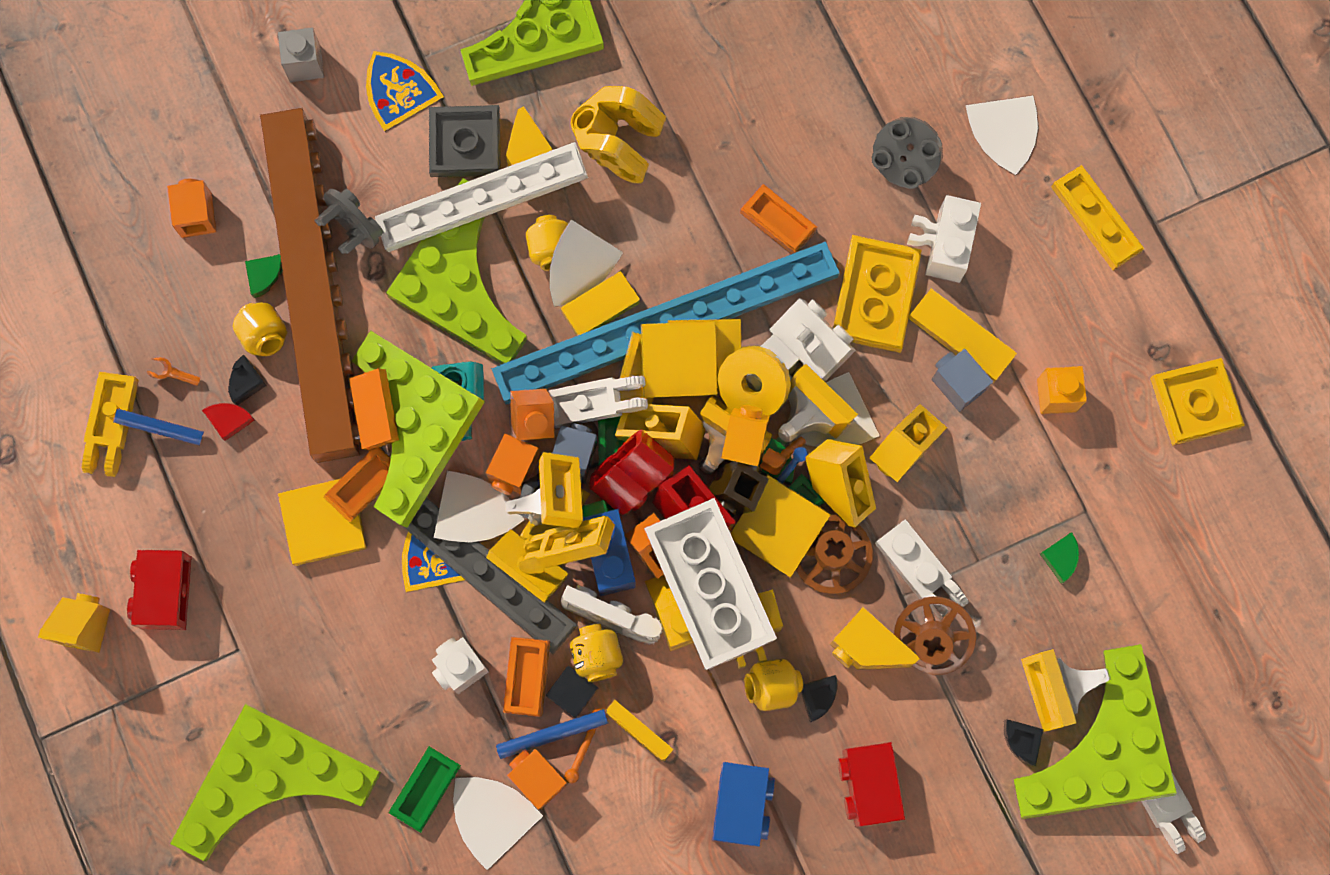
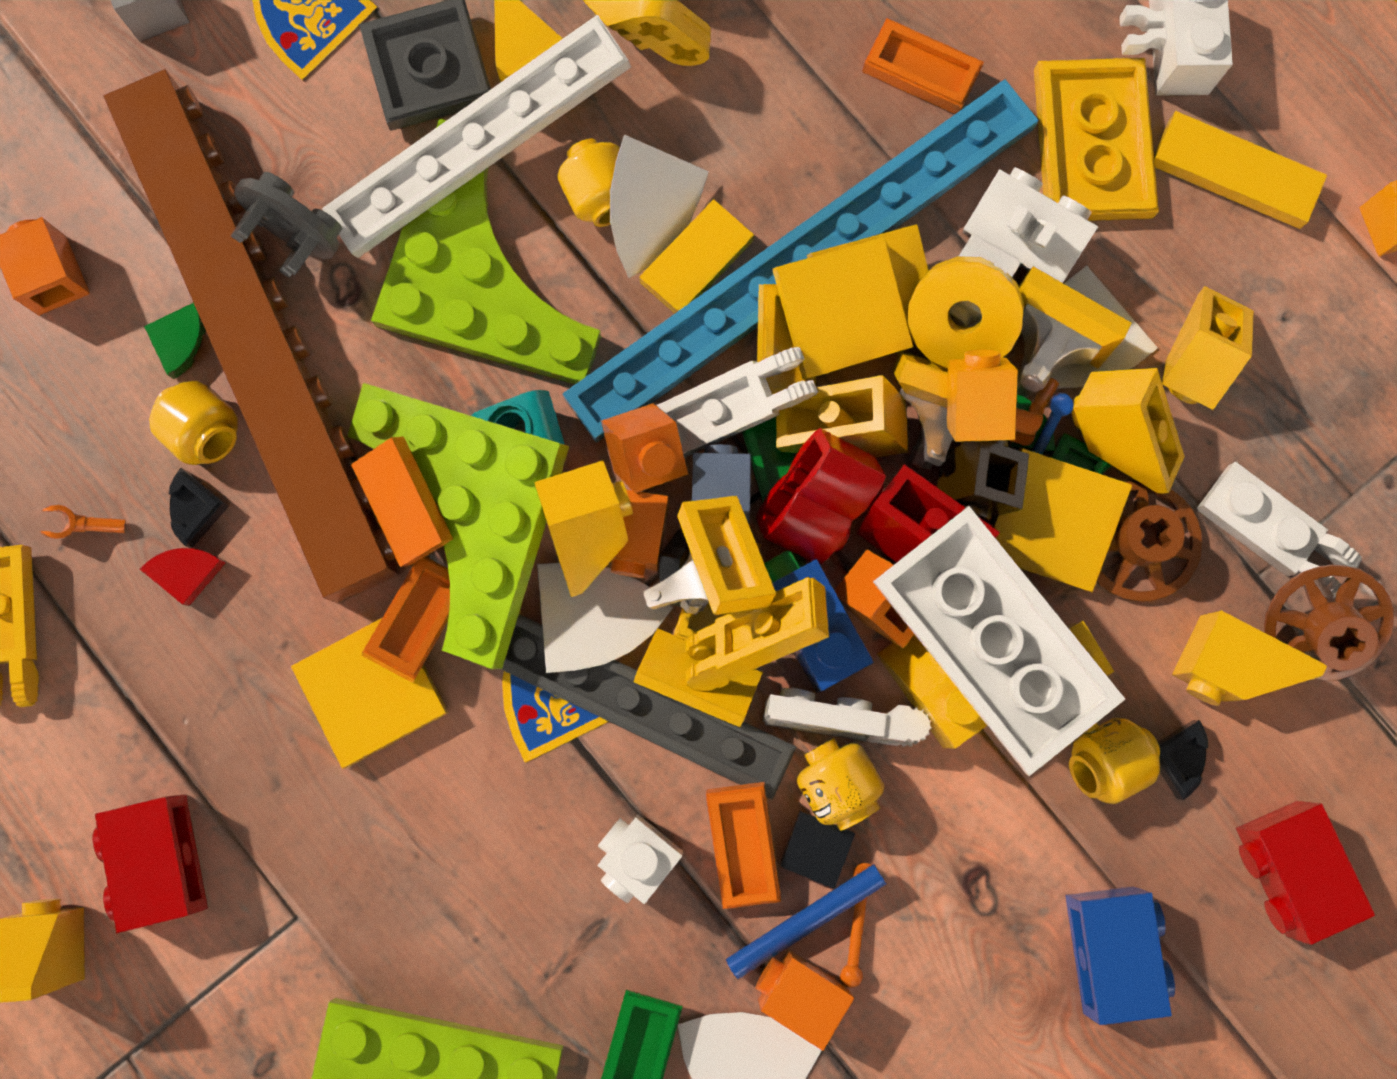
camera: 15 degrees left, 5 degrees up
(158, 426) = (77, 612): blue piece -> none
(480, 449) = (584, 521): none -> yellow slope
(639, 731) = (937, 885): yellow tile -> none
(961, 379) = (1259, 233): sand blue brick -> none

